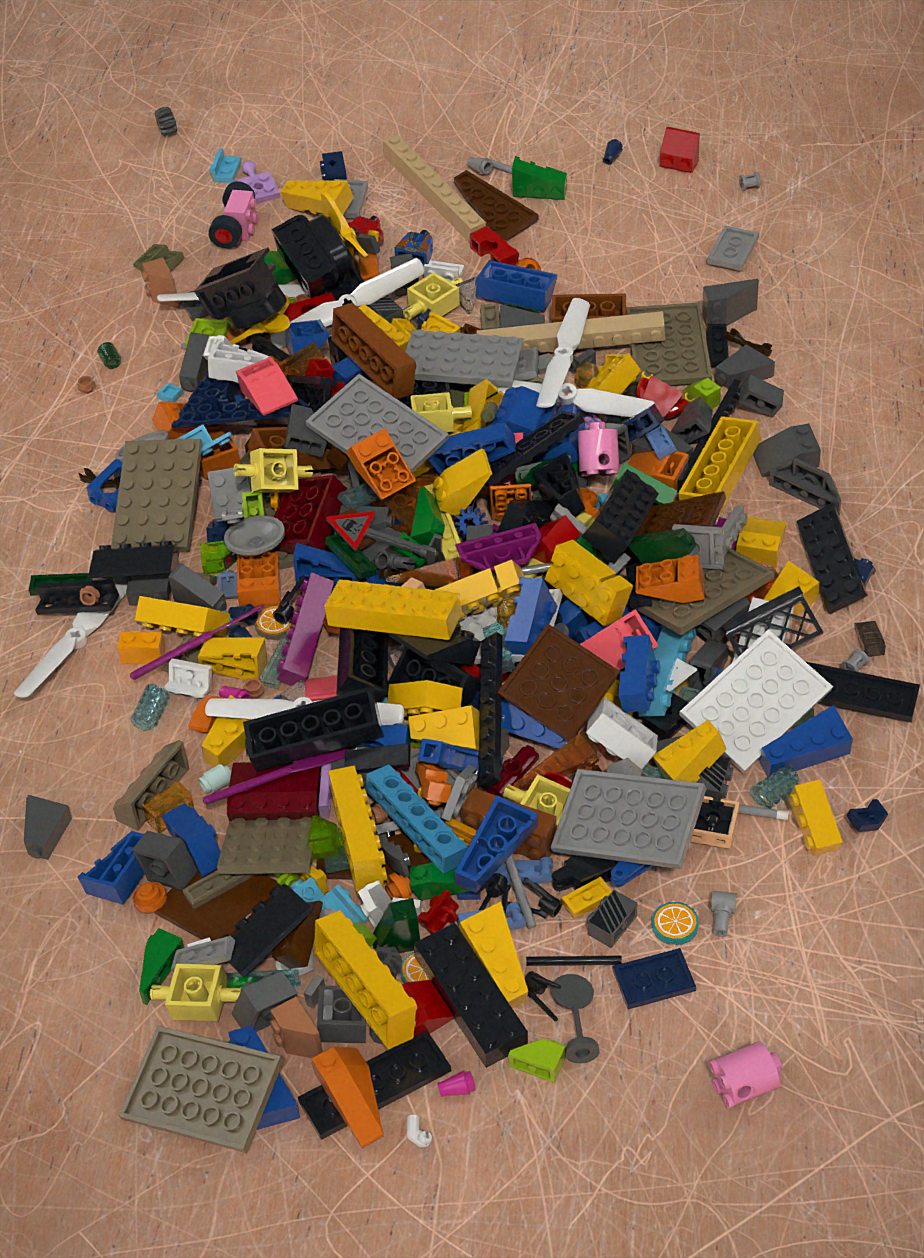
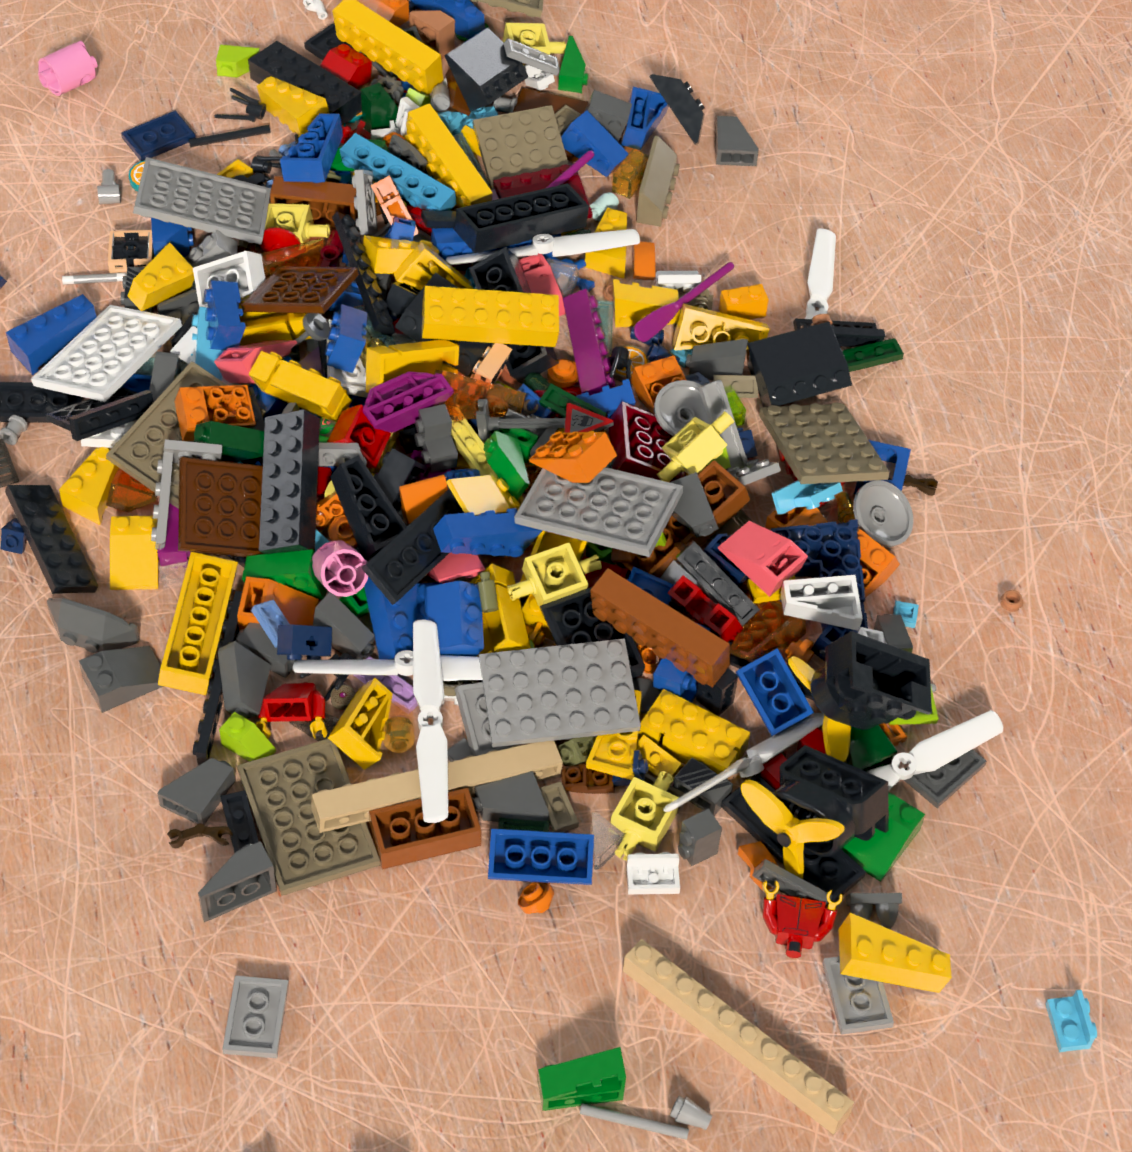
camera: 155 degrees right, 5 degrees up
(77, 854) = (682, 104): none -> black wedge
(109, 355) = (1011, 645): clear green brick -> none
(150, 707) = (700, 252): clear light blue piece -> none
(158, 251) = (1052, 819): olive slope -> none
(158, 280) = (1013, 753): nougat slope -> none
(238, 216) = (984, 901): brick -> none
(238, 693) = (626, 277): dark pink cone -> none
(259, 998) = (461, 28): dark grey brick -> none
(264, 180) = (1002, 1006): lavender plate -> none
(324, 838) = (477, 152): clear neon green slope -> none
(333, 166) = (905, 1047): dark blue brick -> none
(417, 244) = (709, 909): torso -> none
(459, 1084) = (292, 36): dark pink cone -> none
(488, 242) = (577, 922): red arch -> none
(496, 208) = (623, 1018): reddish brown wing -> none
(576, 994) = (222, 111): dark grey piece -> none
(587, 356) = (406, 758): dark grey bracket -> none
(612, 918) = (206, 157): dark grey brick -> none
(761, 396) = (166, 736): dark grey brick -> none
(775, 787) = (81, 283): clear light blue piece -> none
(815, 817) = (39, 269): yellow wedge -> none

